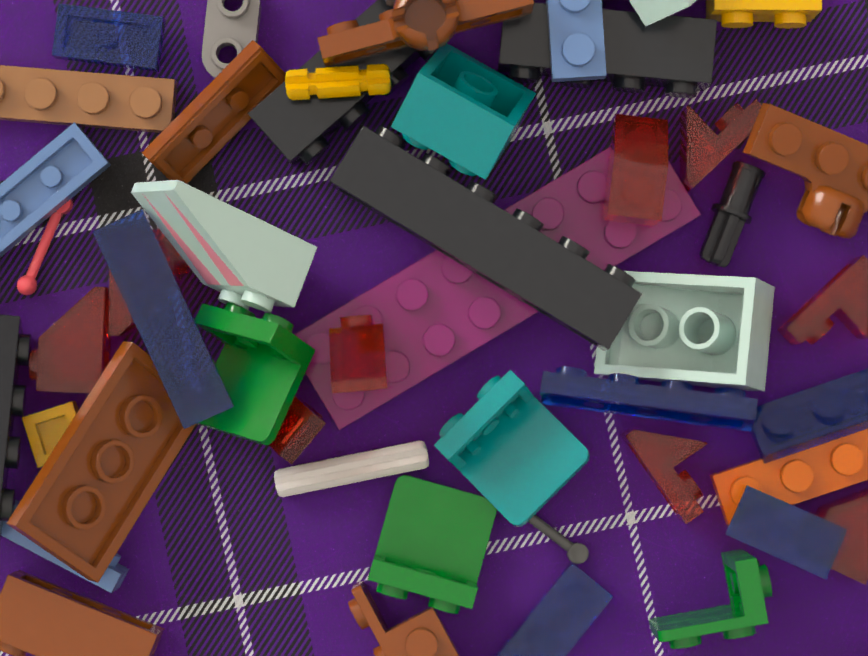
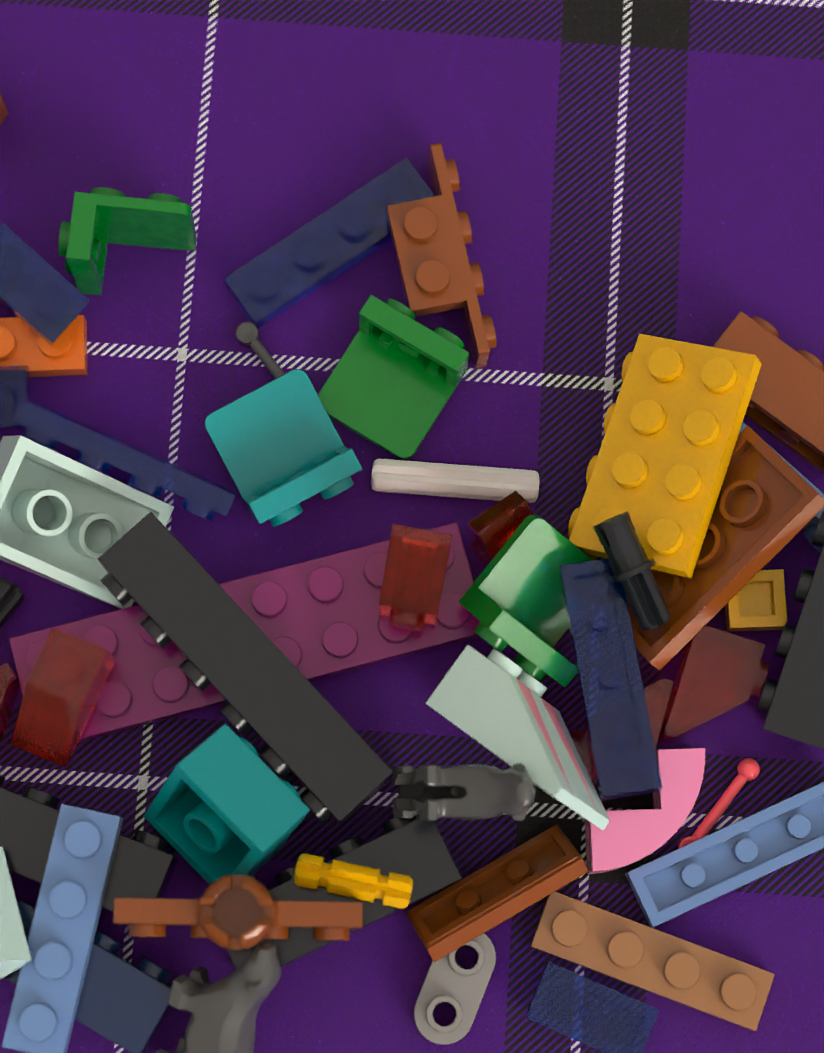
camera: 170 degrees left, 10 degrees down
(101, 201) = (641, 832): none -> bright pink brick
(167, 417) = (633, 570): none -> black axle
(168, 538) = (667, 448): none -> yellow bracket
(263, 173) = (462, 791): none -> dark grey animal
(658, 457) = (129, 401): clear red slope -> none

